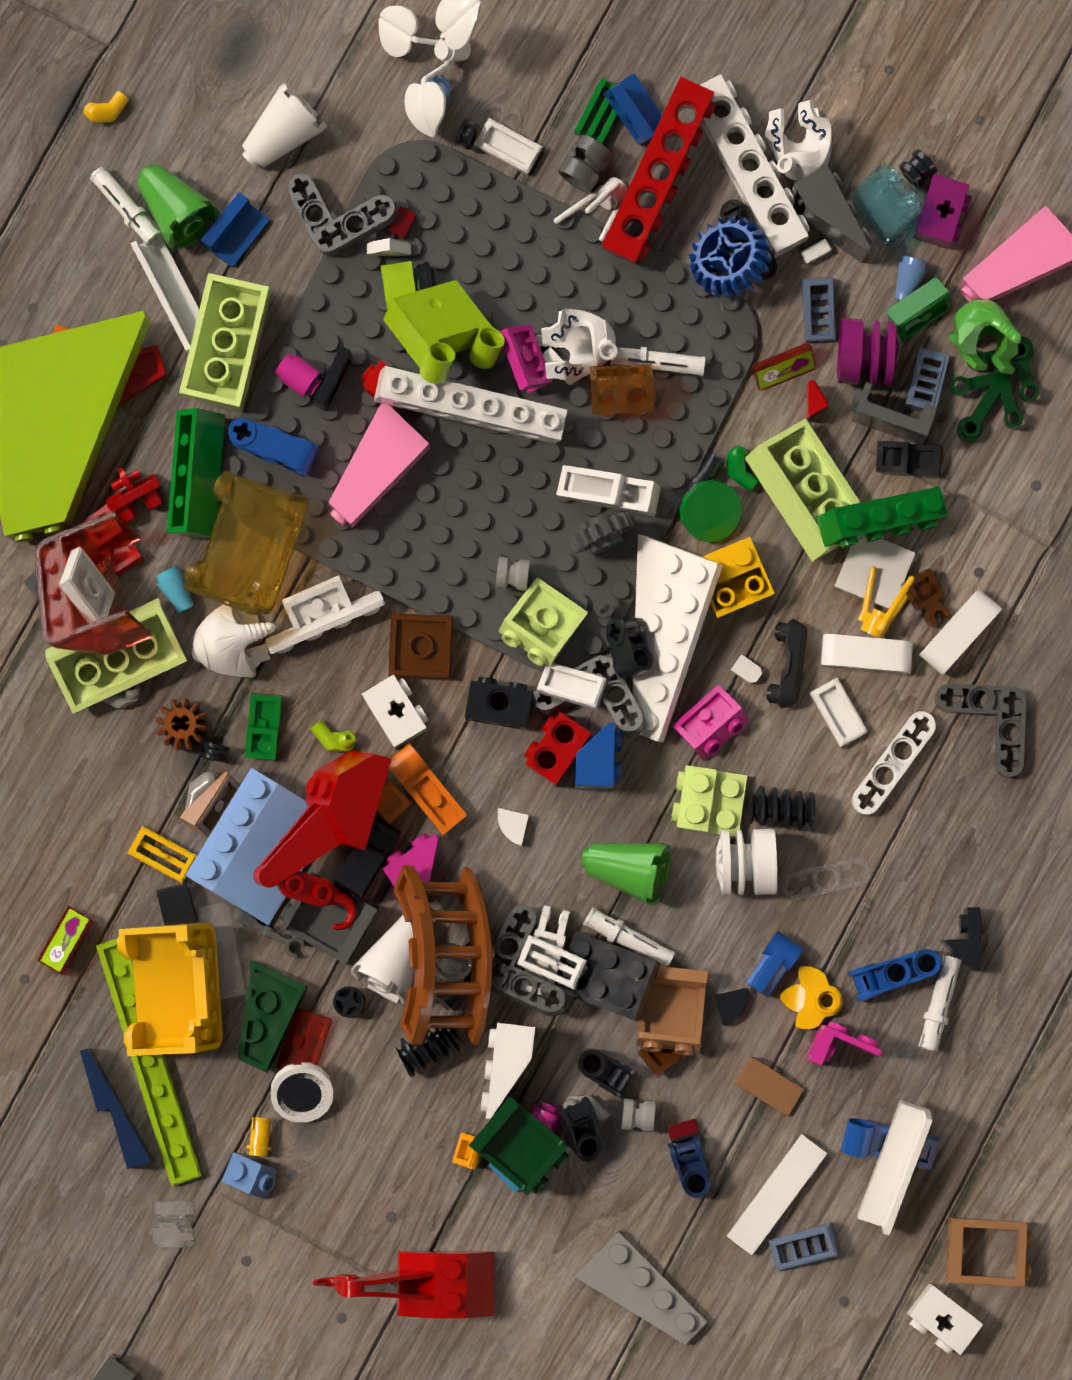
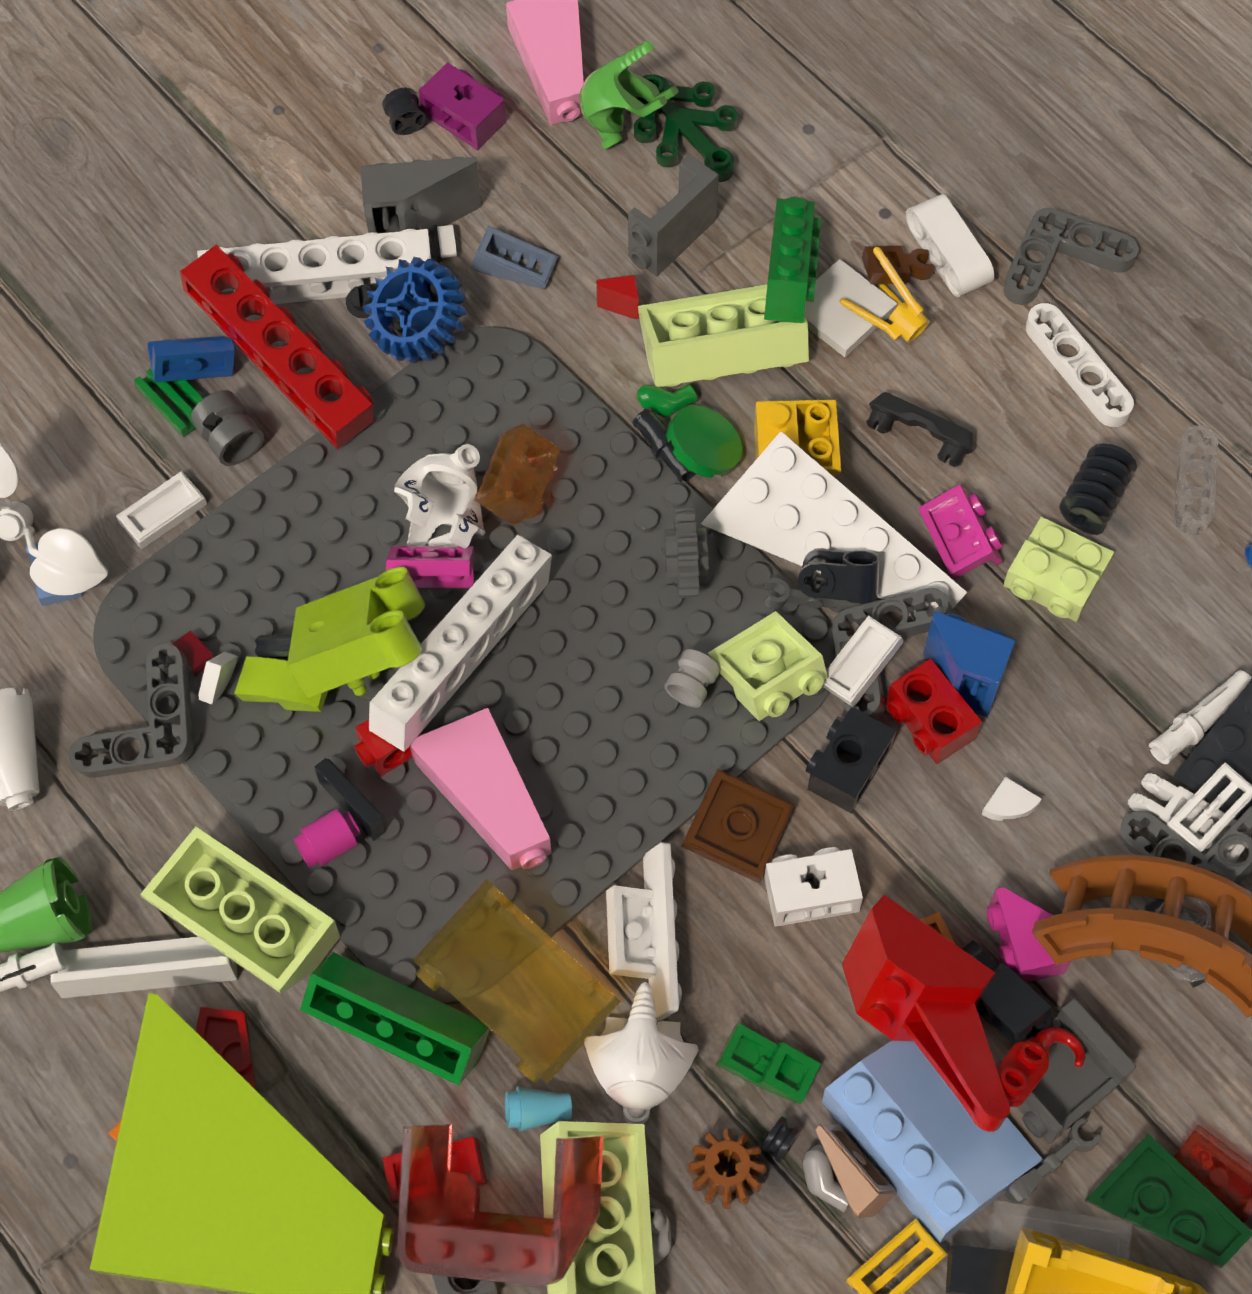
camera: 70 degrees left, 20 degrees down
(86, 586) = (492, 1210): white tile -> none
(121, 501) = (384, 1096): red hips -> none
(235, 230) = (102, 858): blue panel -> none
(274, 445) = (402, 905): blue piece -> none
(333, 740) = (821, 980): lime arm -> none
(344, 1001) = (1190, 1080): black wheel -> none
(388, 964) = (1148, 1005): white cone -> none
(426, 789) = (934, 883): orange plate -> none
(466, 134) = (123, 544): black bush -> none
(608, 196) = (279, 419): white plant -> none
(609, 490) = (632, 536): white slope -> none
(630, 867) = (1117, 677): bright green cone -> none
(660, 360) = (521, 399): white pin -> none
(746, 670) = (909, 476): white piece -> none
(747, 862) = (1155, 541): white wheel -> none
(783, 366) = (565, 315): slope -> none
(803, 158) = (335, 201): white piece -> none
(838, 712) = (997, 400): white tile -> none
(866, 352) = (588, 217): magenta wheel -> none
(866, 654) = (940, 344): white beam -> none
(887, 203) = (428, 131): clear light blue slope -> none
(909, 276) = (520, 159): medium blue cone -> none
(909, 459) = (728, 230): black slope -> none
(916, 403) = (639, 194): sand blue slope -> none
(920, 308) = (561, 161): green slope -> none

